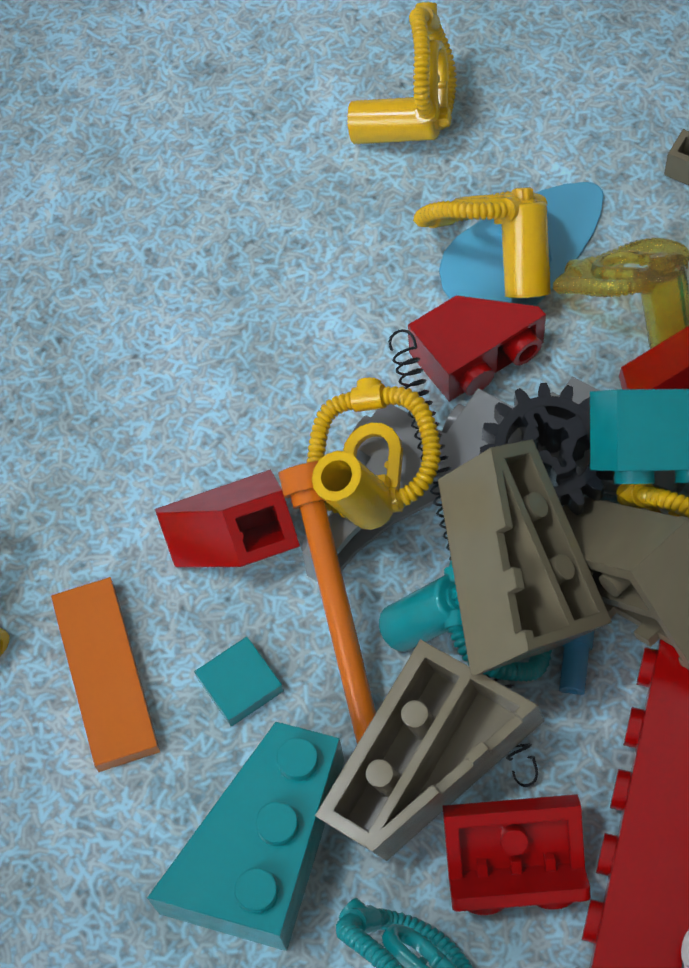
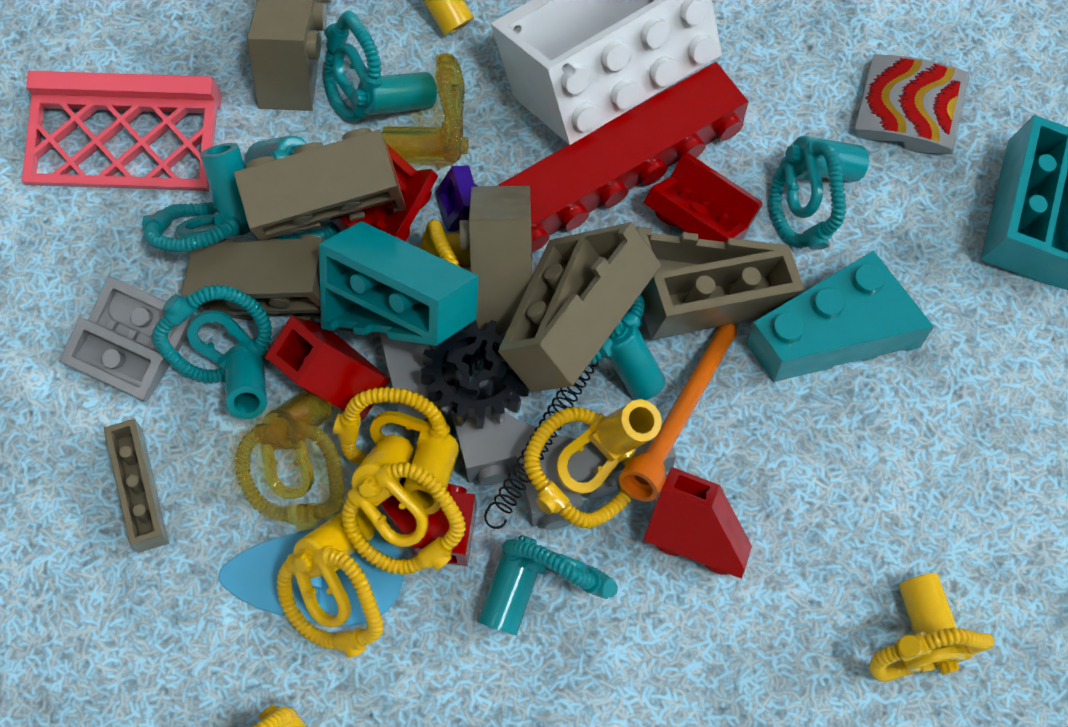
camera: 145 degrees left, 5 degrees up
(105, 675) = (851, 511): orange tile -> none
(239, 681) = (771, 434): teal tile -> none
(348, 348) = (517, 574): none -> teal piece
(512, 363) = (435, 446): none -> yellow piece
(516, 275) = (379, 479): none -> yellow piece

